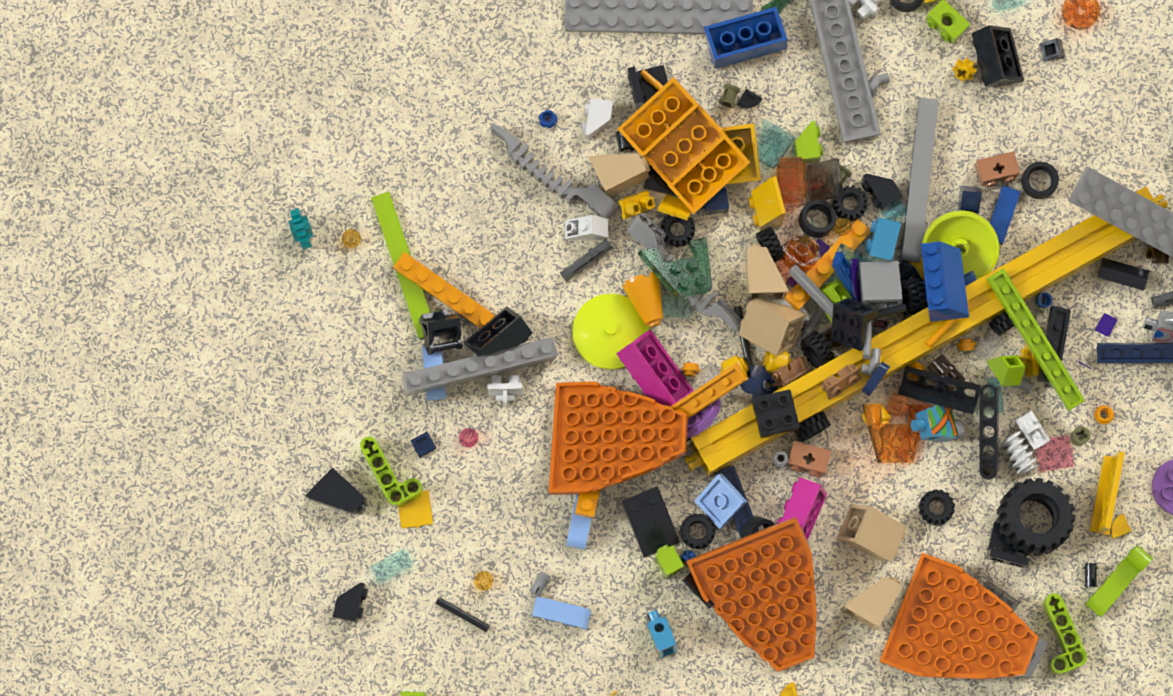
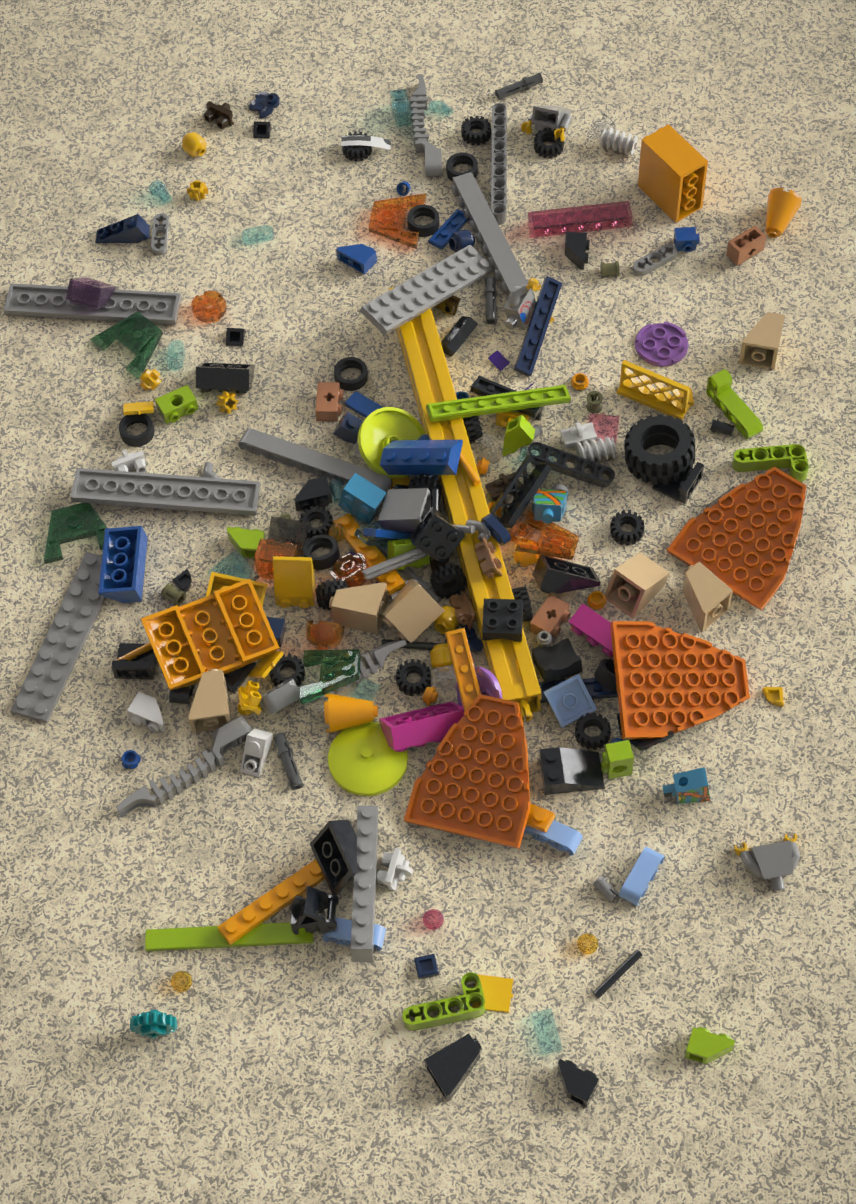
camera: 70 degrees left, 20 degrees down
(714, 340) = (405, 670): none -> black tyre
(725, 250) = (324, 634): none -> clear orange cylinder
(760, 477) = (557, 661): none -> black brick
(844, 498) = (596, 600): none -> light orange plate
(856, 461) = (563, 576): none -> black slope

